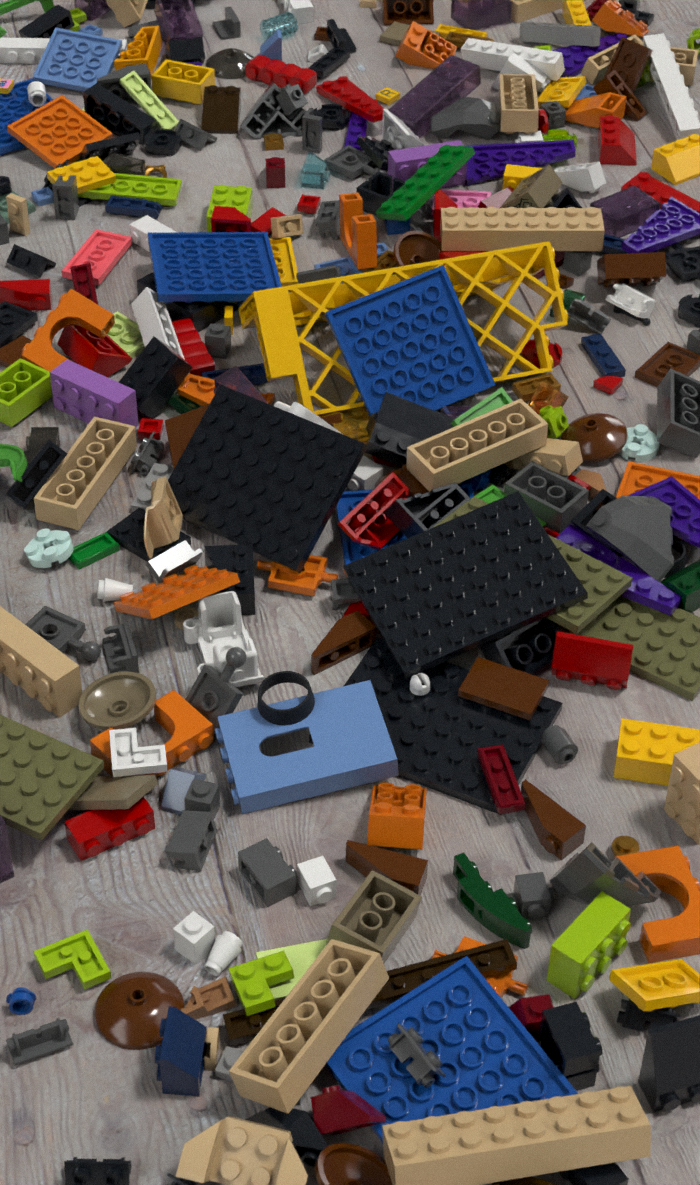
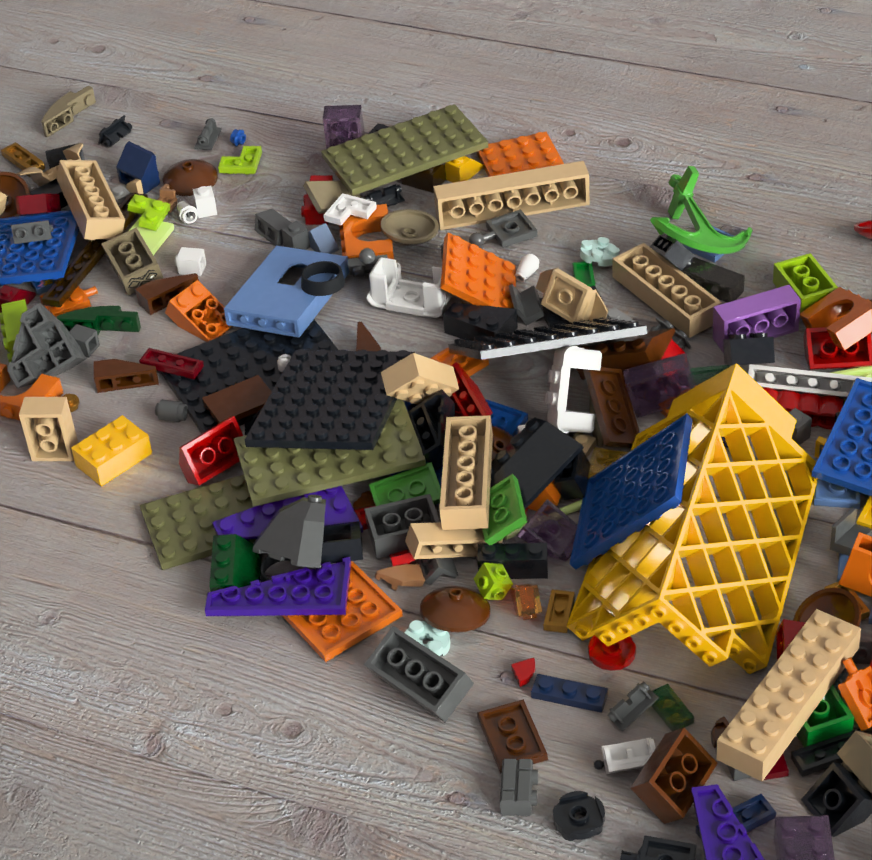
camera: 130 degrees right, 0 degrees up
(147, 426) = (702, 349): red plate -> none
(267, 872) = (219, 244): dark grey brick -> none
(397, 517) = (418, 379): none -> tan brick

